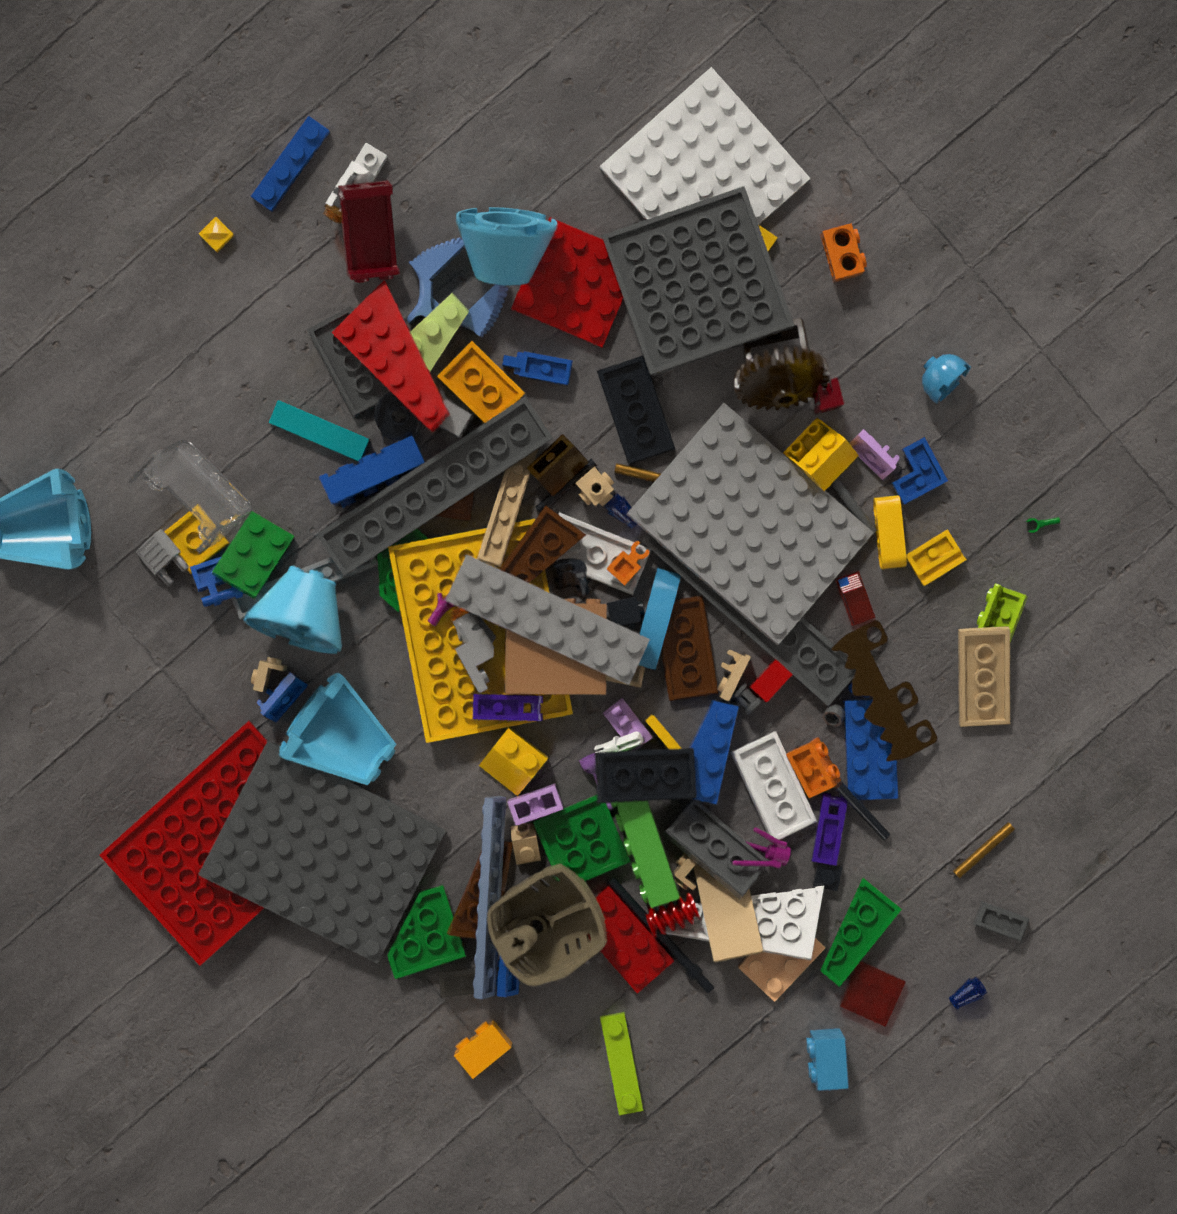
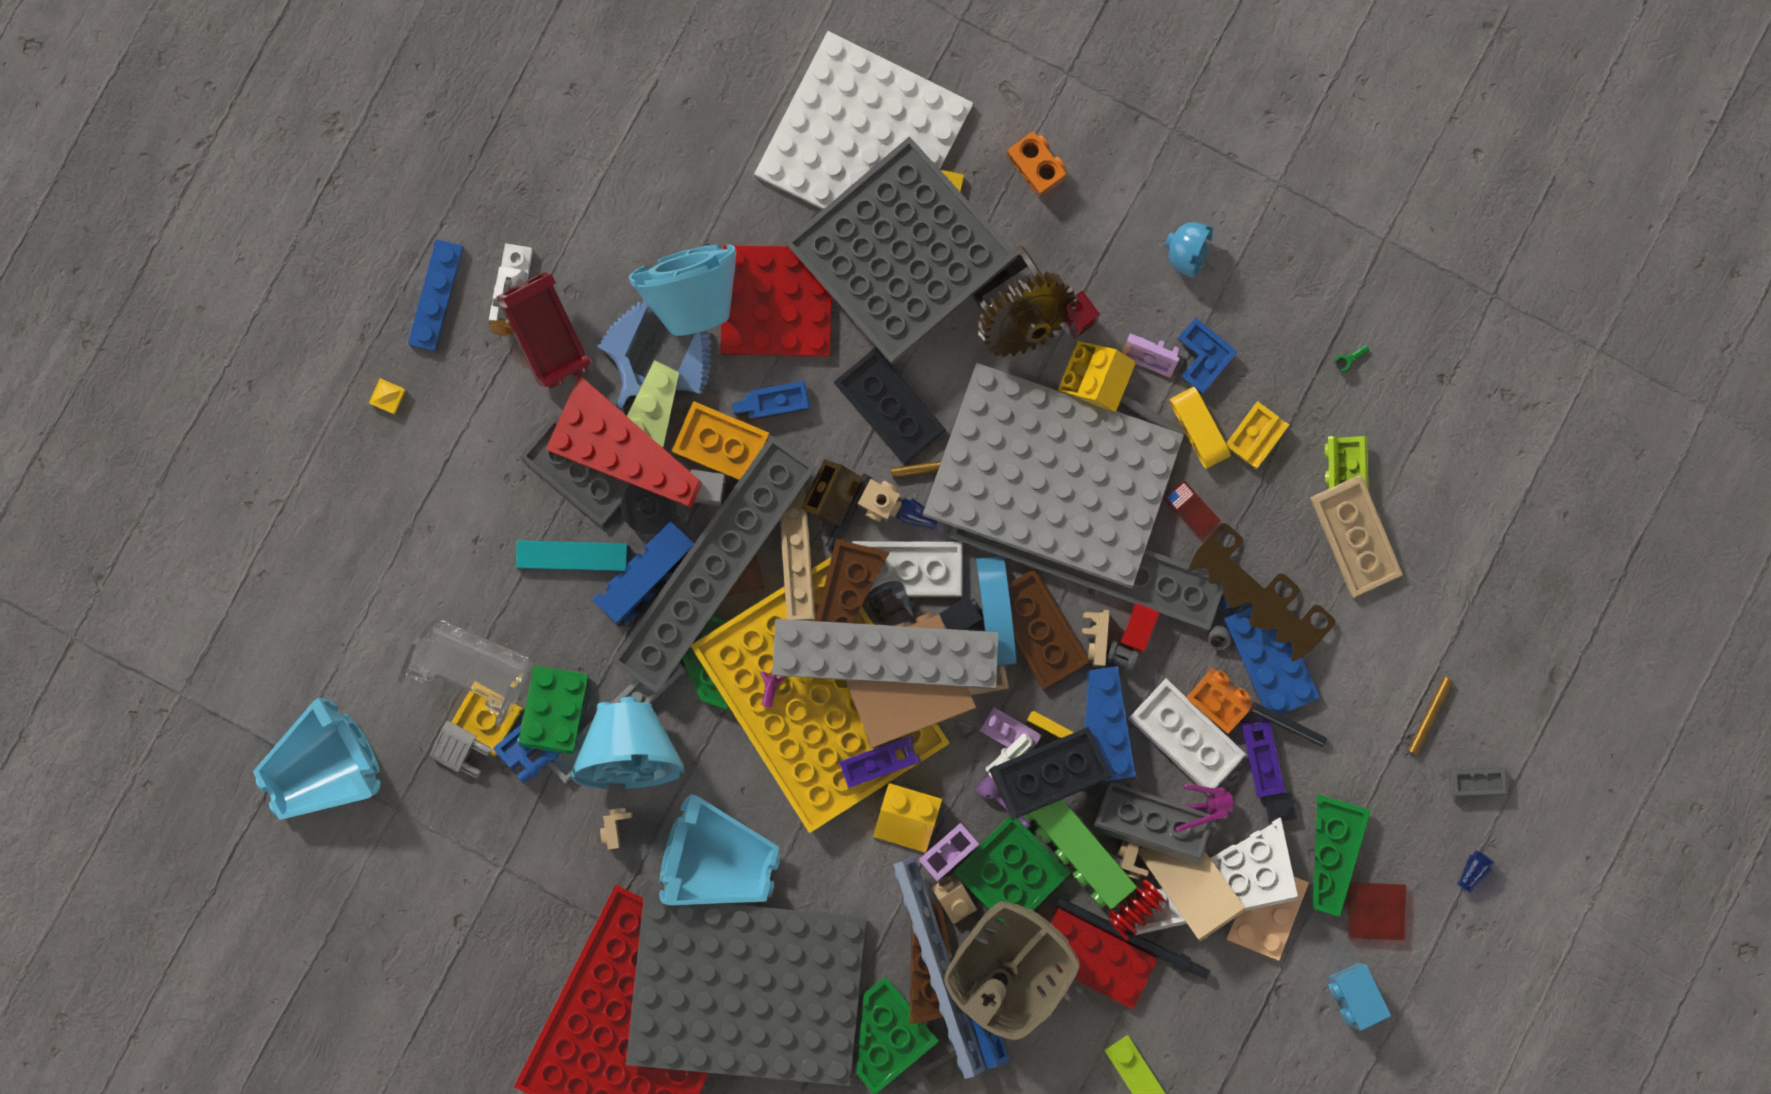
camera: 25 degrees left, 5 degrees down
(282, 697) = (642, 845): blue plate -> none
(477, 644) = (822, 710): light grey plate -> none
(625, 565) = (943, 568): orange plate -> none

